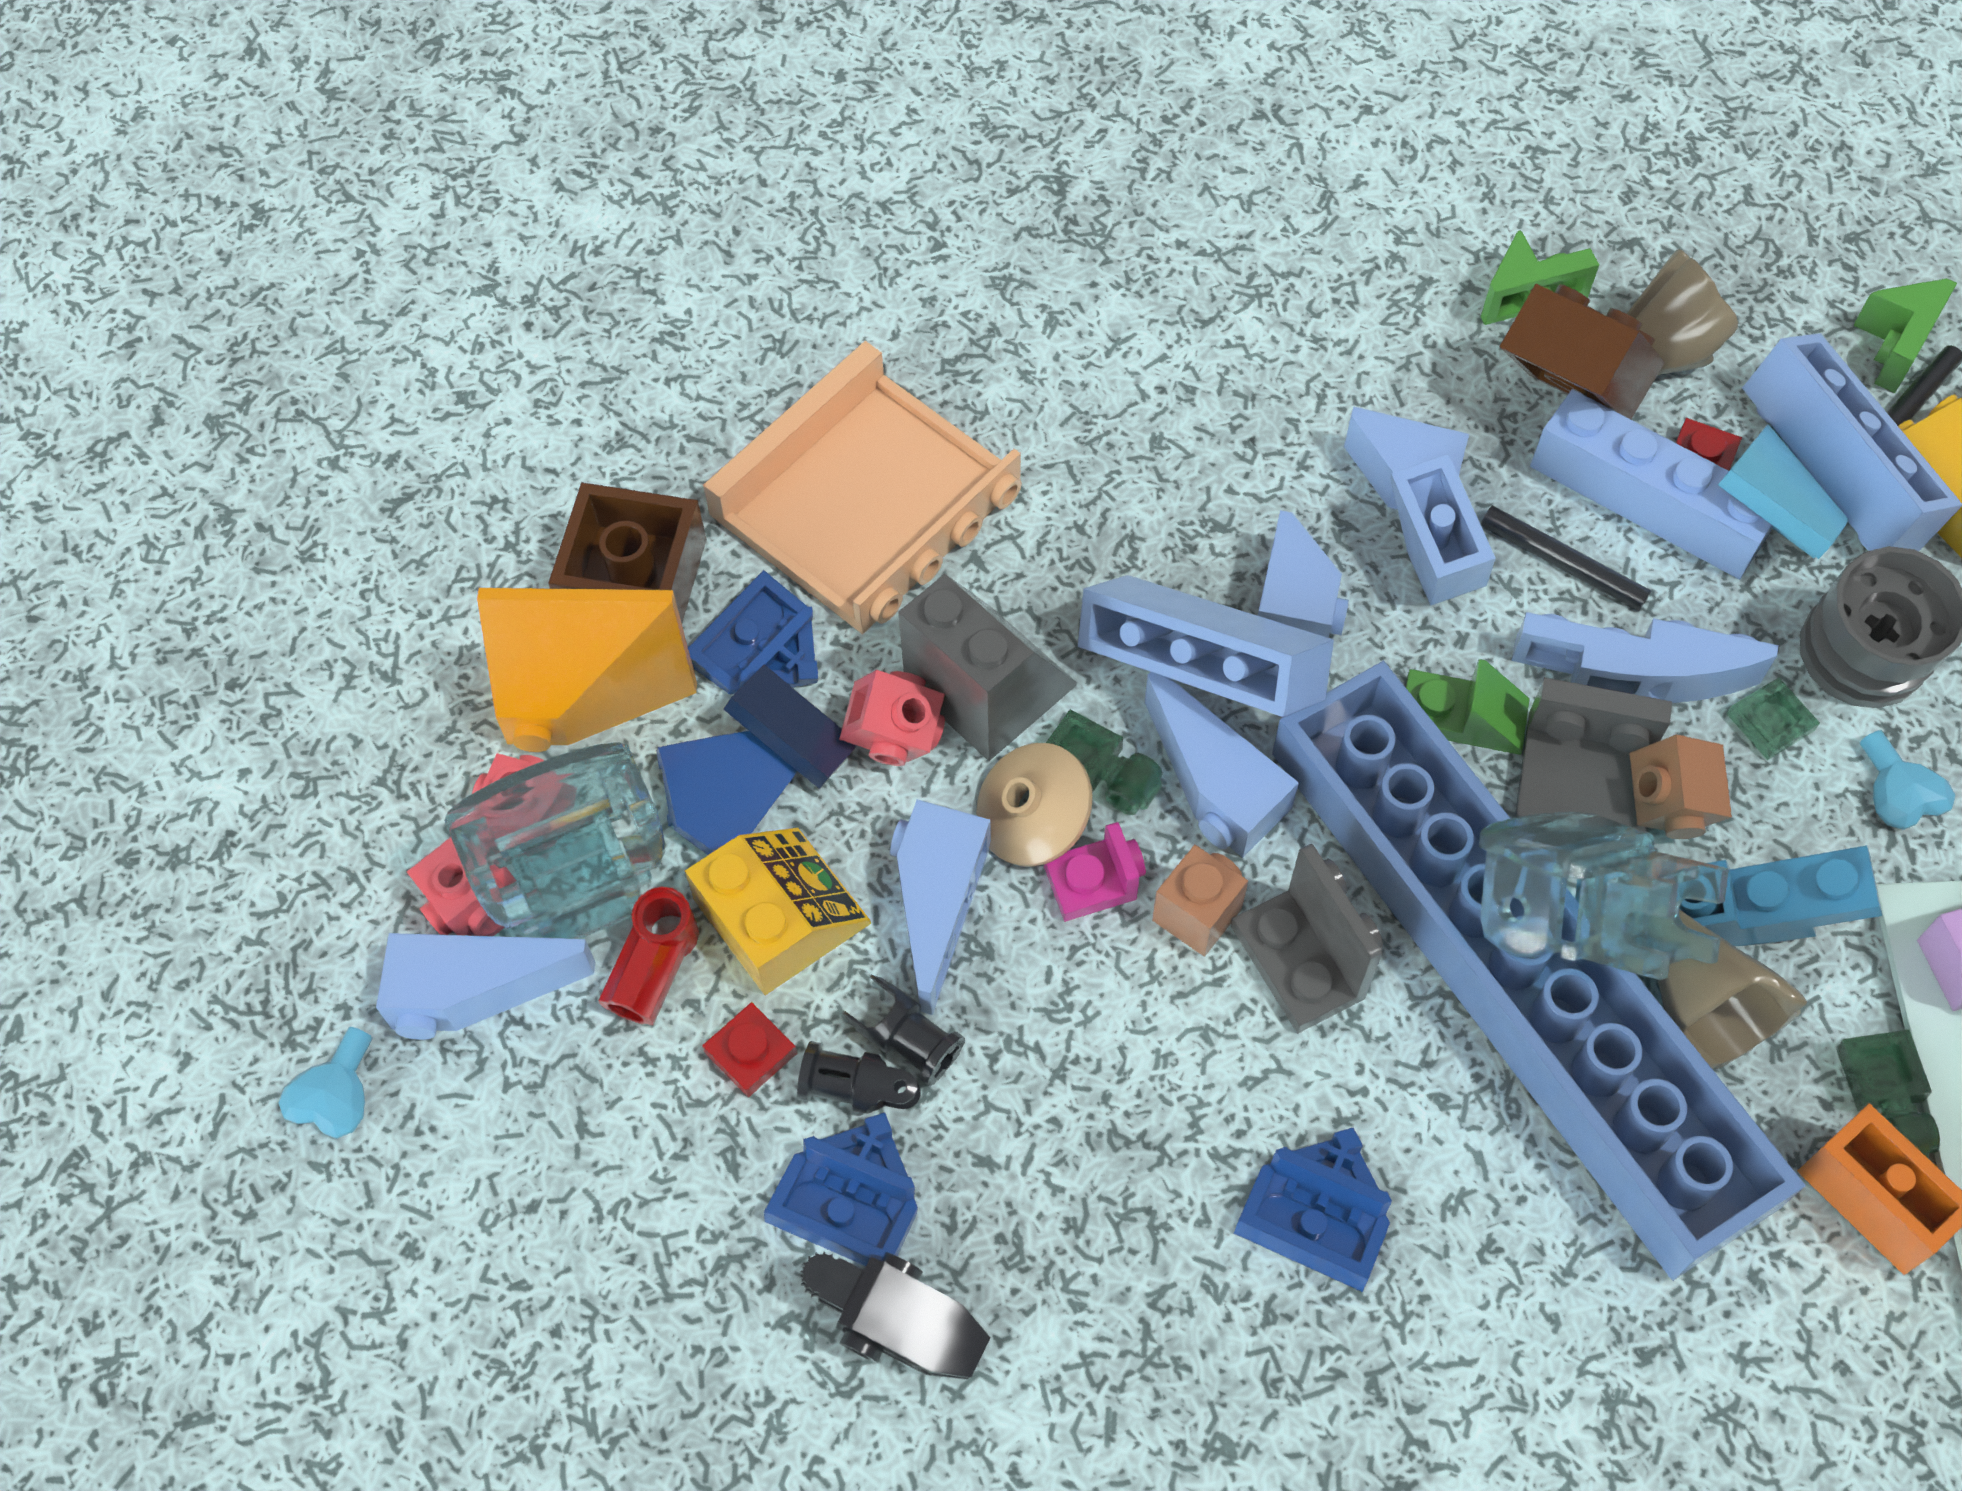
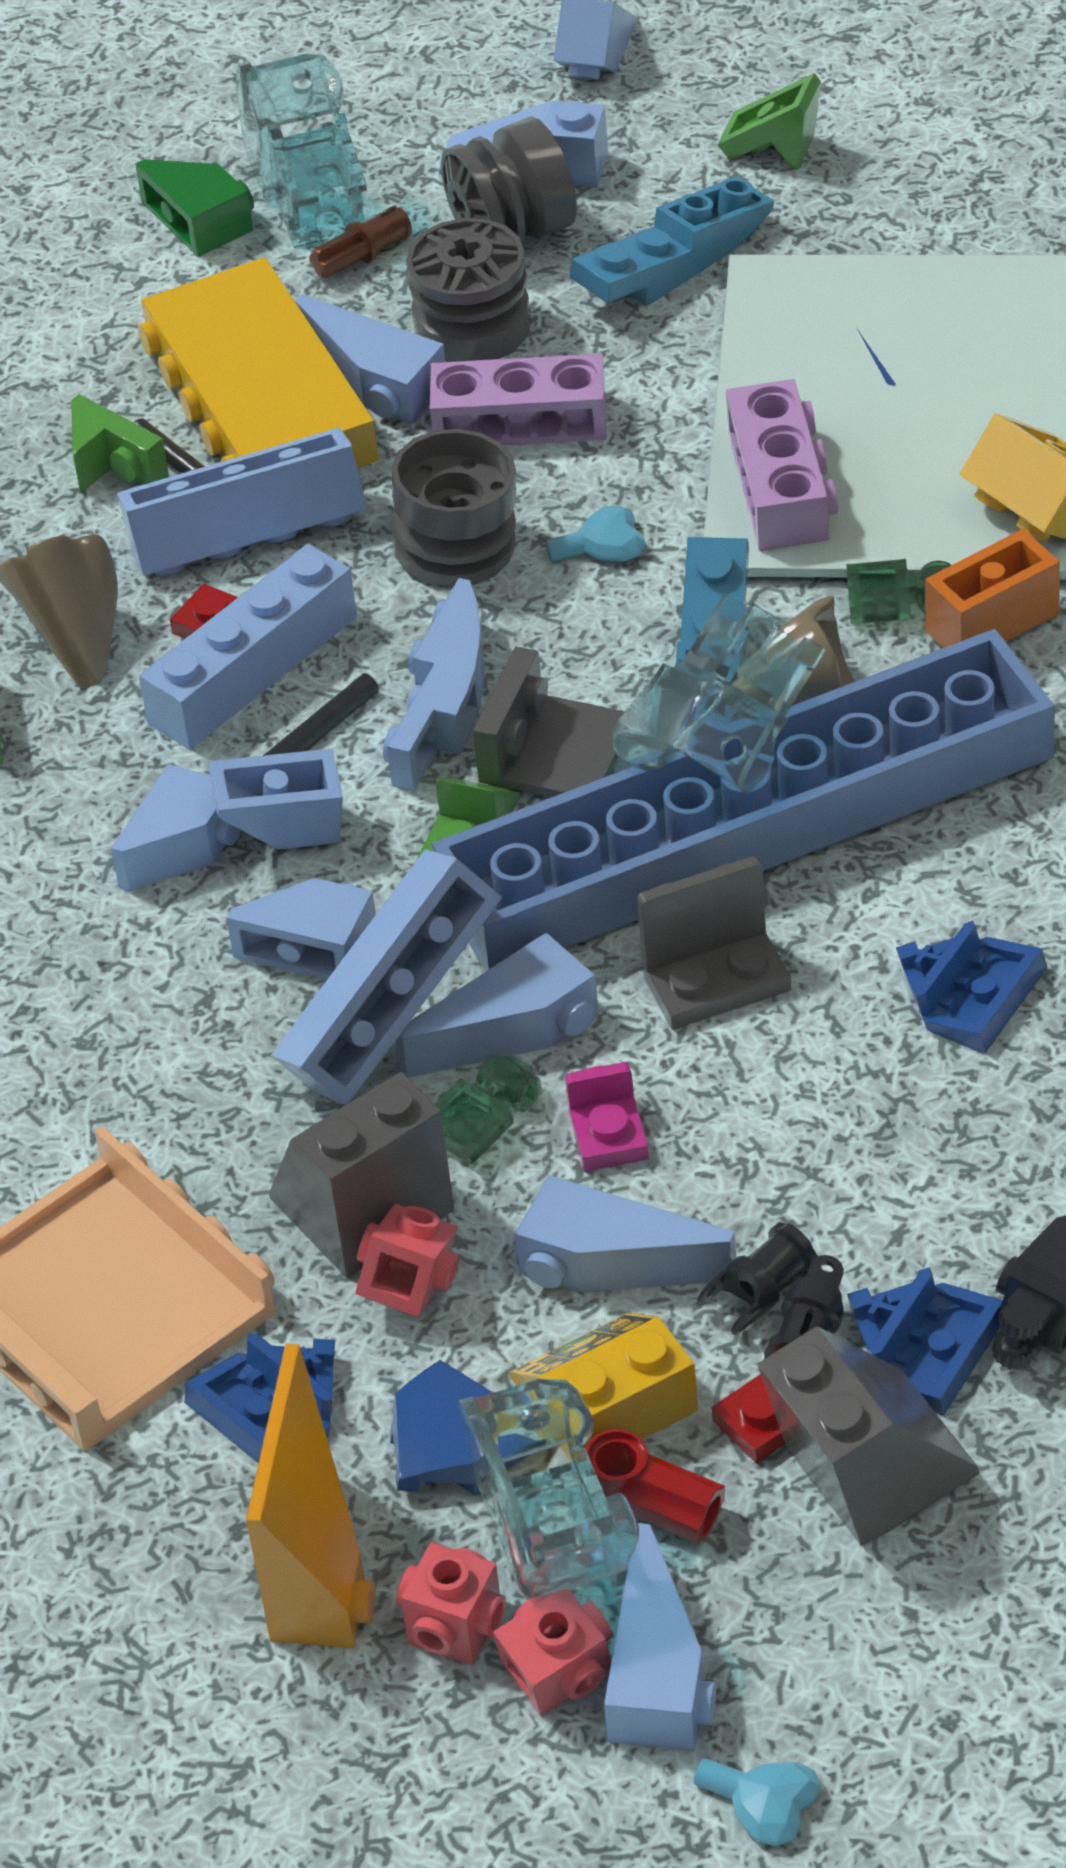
camera: 80 degrees left, 15 degrees down
(630, 543) = (156, 1495): reddish brown brick -> none
(682, 1129) = (861, 1433): none -> dark grey slope
(790, 726) = (397, 1355): dark blue tile -> none
(1053, 813) = (485, 1146): tan dish -> none
(1200, 899) = (654, 1030): nougat brick -> none
(1583, 350) = (100, 658): reddish brown brick -> none
(1680, 786) = (590, 671): nougat brick -> none
(1773, 718) = (516, 613): clear green tile -> none
(1785, 494) = (286, 548): medium azure slope -> none

